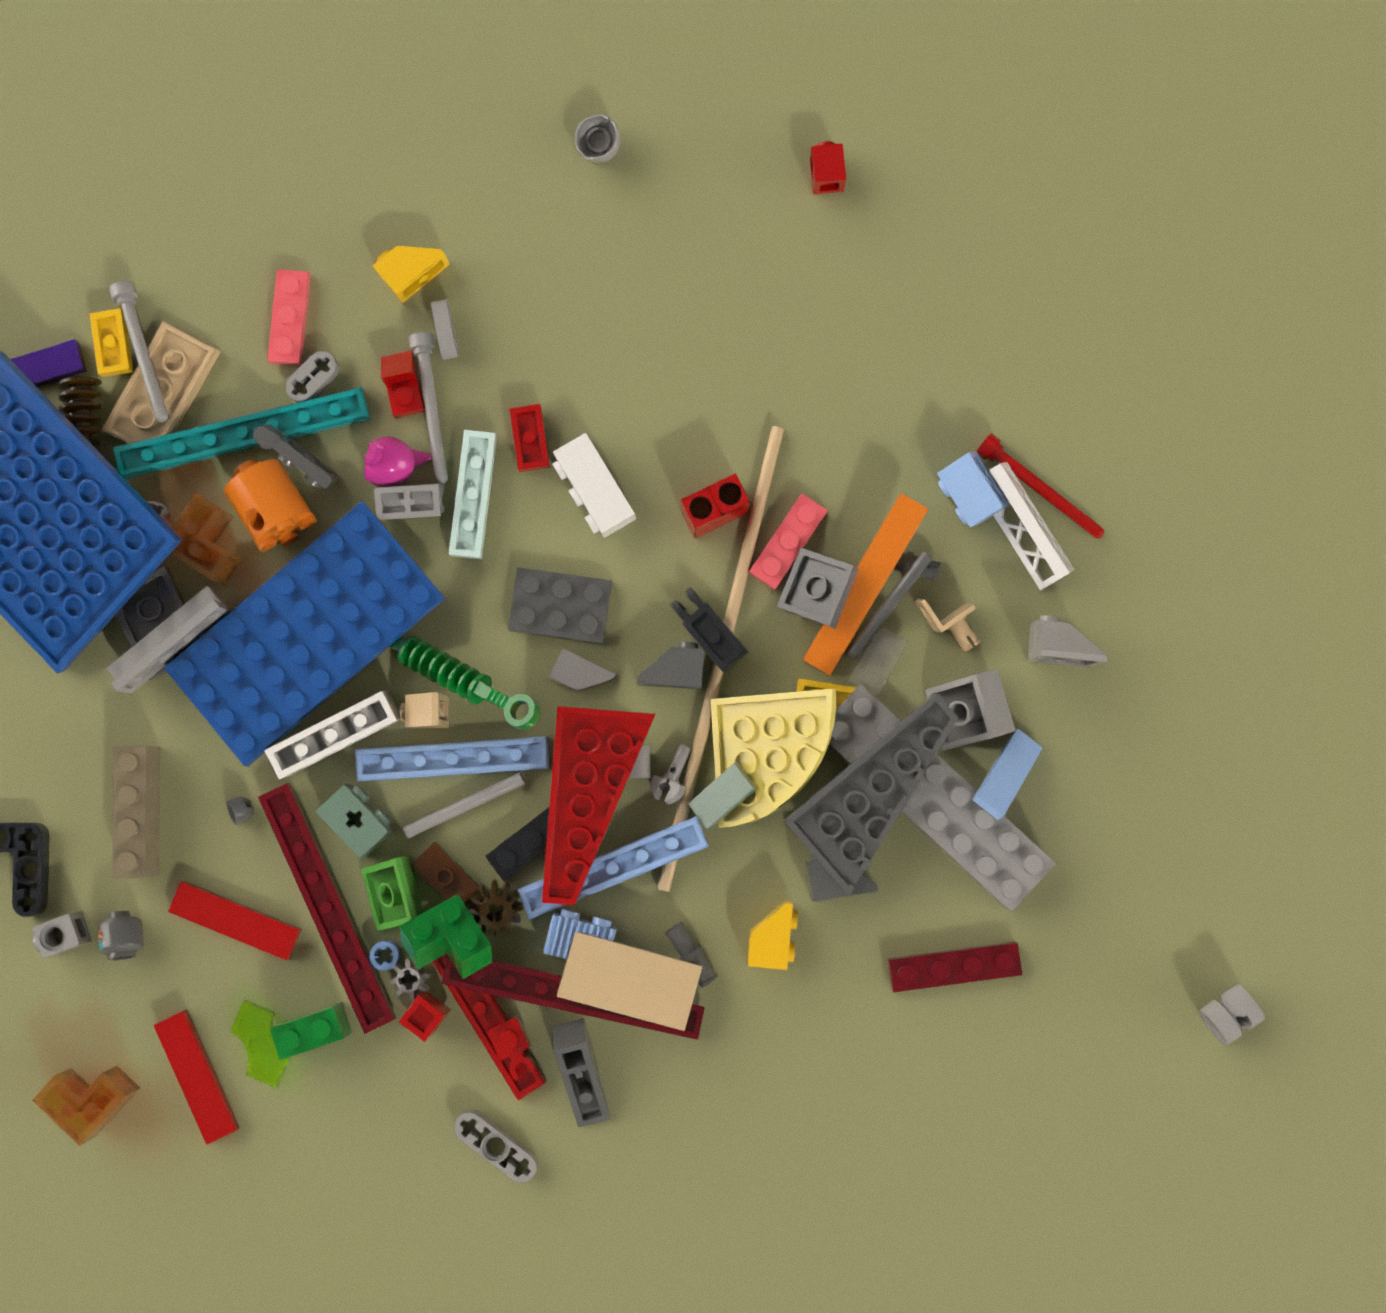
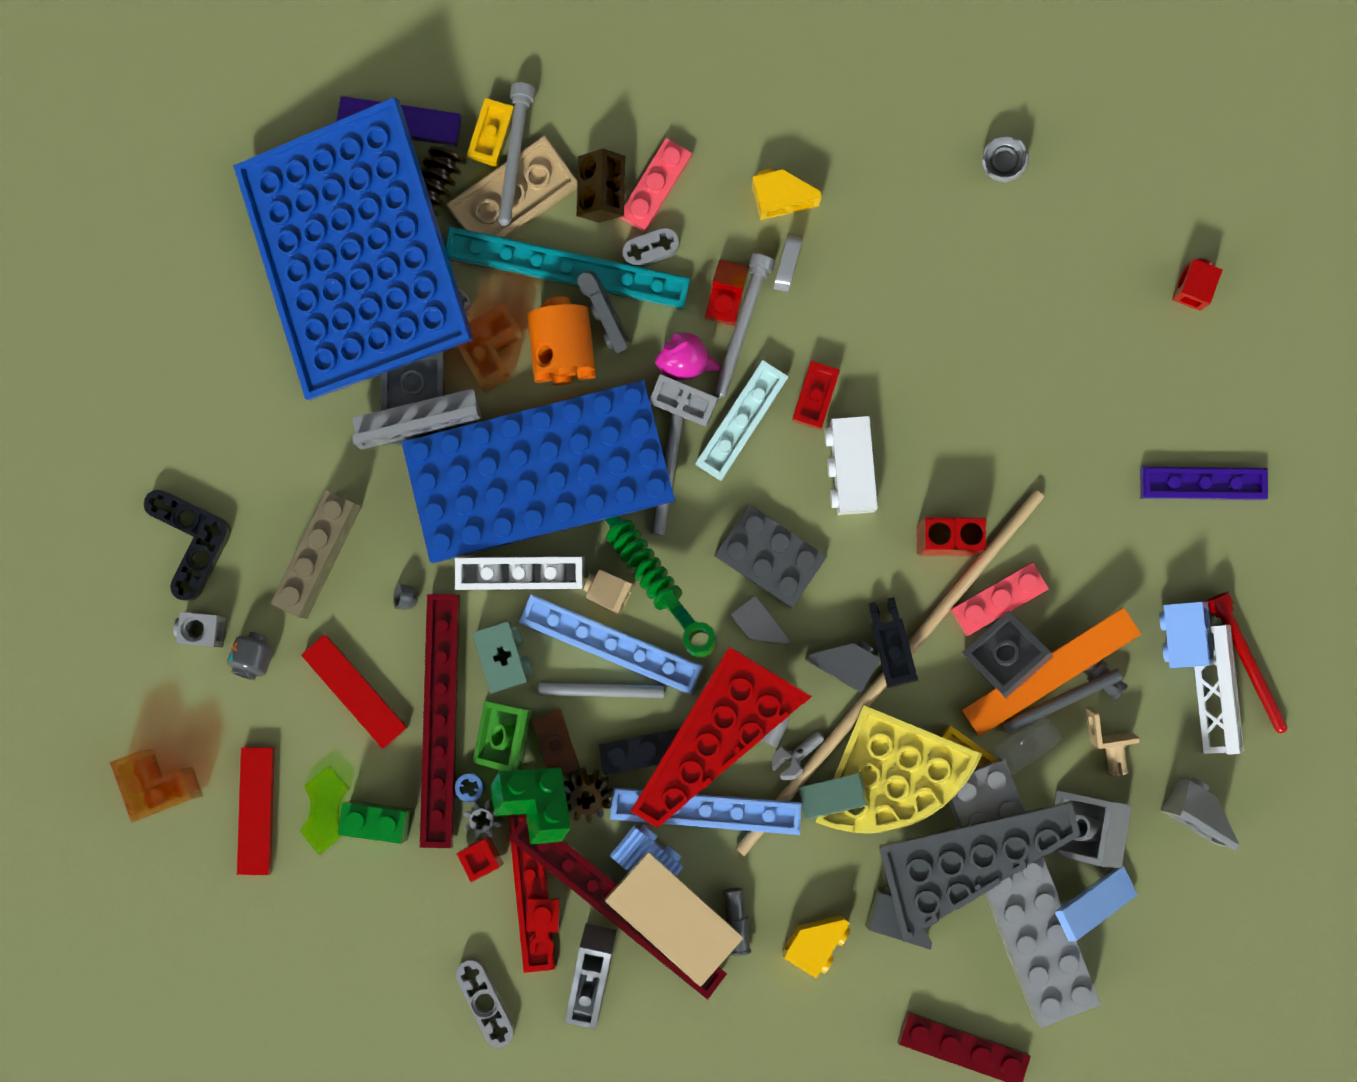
camera: 25 degrees right, 0 degrees up
(236, 342) = (600, 185): none -> dark brown brick
(426, 565) = (670, 460): none -> light grey bar
(921, 346) = (1204, 483): none -> dark purple tile

